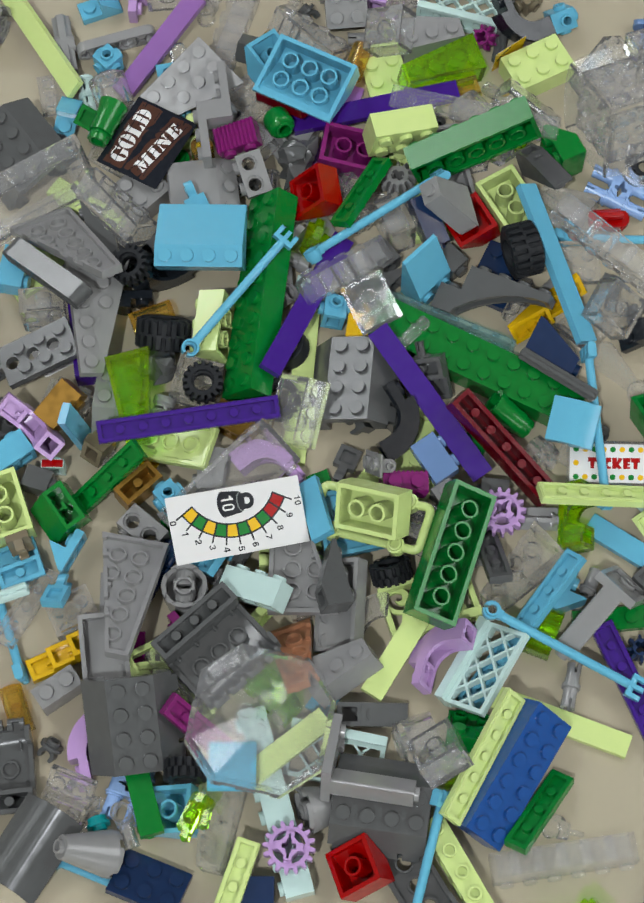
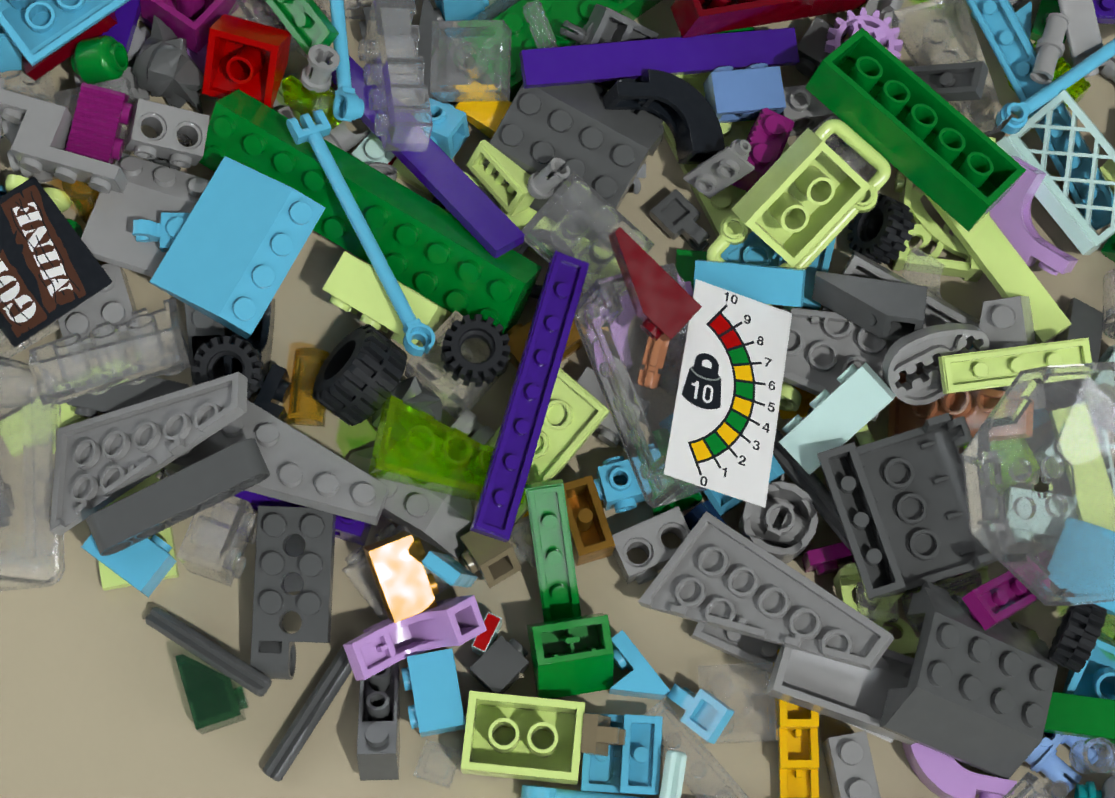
camera: 70 degrees left, 5 degrees up
(244, 473) = (653, 359): none -> nougat axle
(268, 450) = (653, 292): none -> dark red slope
(303, 633) = (920, 347): none -> light grey piece
(316, 359) = (512, 197): none -> yellowish green slope
(316, 649) = (1001, 366): none -> yellowish green tile
(323, 374) = (542, 183): none -> light grey pin
(326, 228) = (317, 65): none -> light grey bush
(550, 615) = (1049, 48): none -> light grey pin

